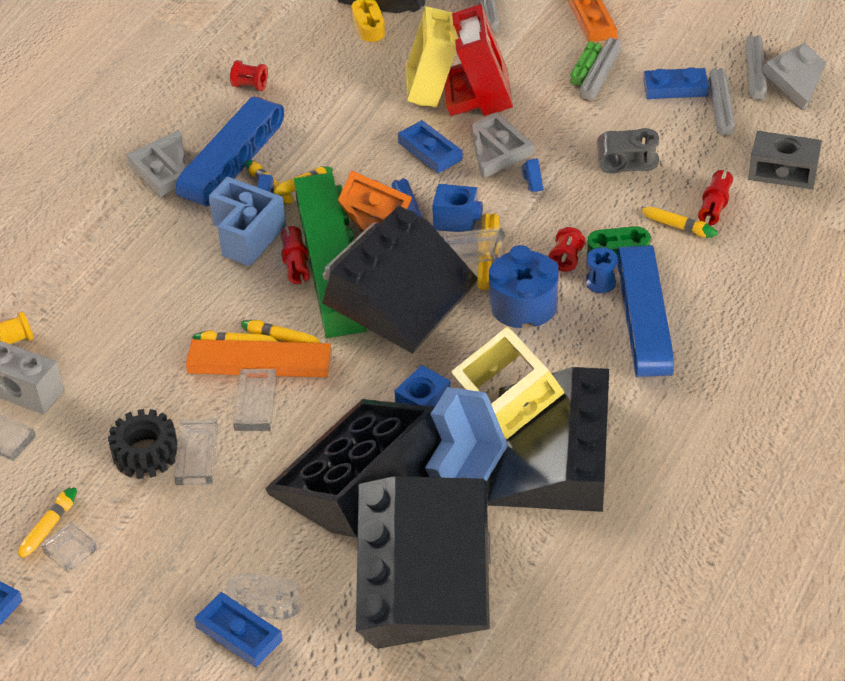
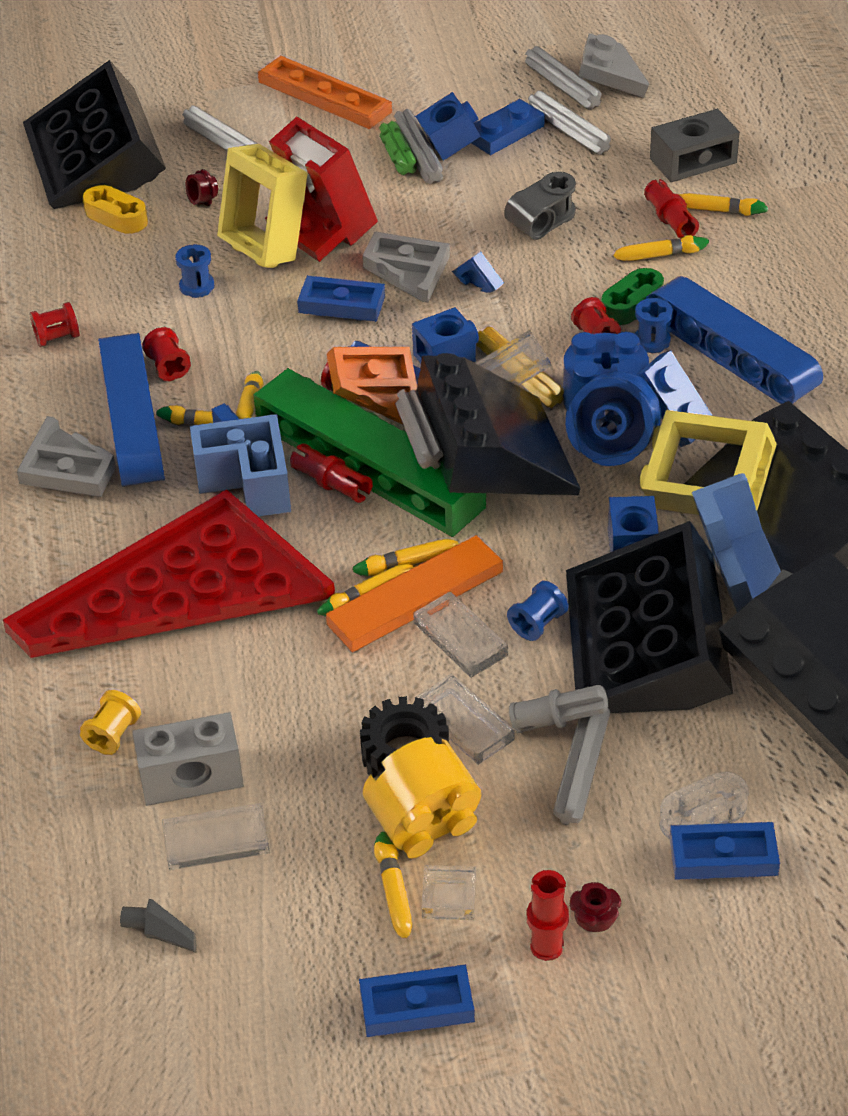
camera: 40 degrees left, 0 degrees up
(81, 592) = (547, 915): none -> red pin
(103, 478) = (423, 795): none -> yellow brick
(134, 618) = (595, 917): none -> dark red plate
(153, 272) = (186, 574): none -> red wing
(227, 521) = (580, 768): none -> light grey axle
(242, 477) = (558, 708): none -> light grey axle
(288, 127) = (169, 359): none -> red bush
(308, 412) = (537, 610): none -> blue bush
(362, 82) = (195, 270): none -> blue bush
(479, 311) = (601, 439): none -> blue brick
(546, 325) = (673, 388): none -> plate
(626, 63) = (449, 125): none -> blue brick
(775, 223) = (746, 206): none -> yellow piece

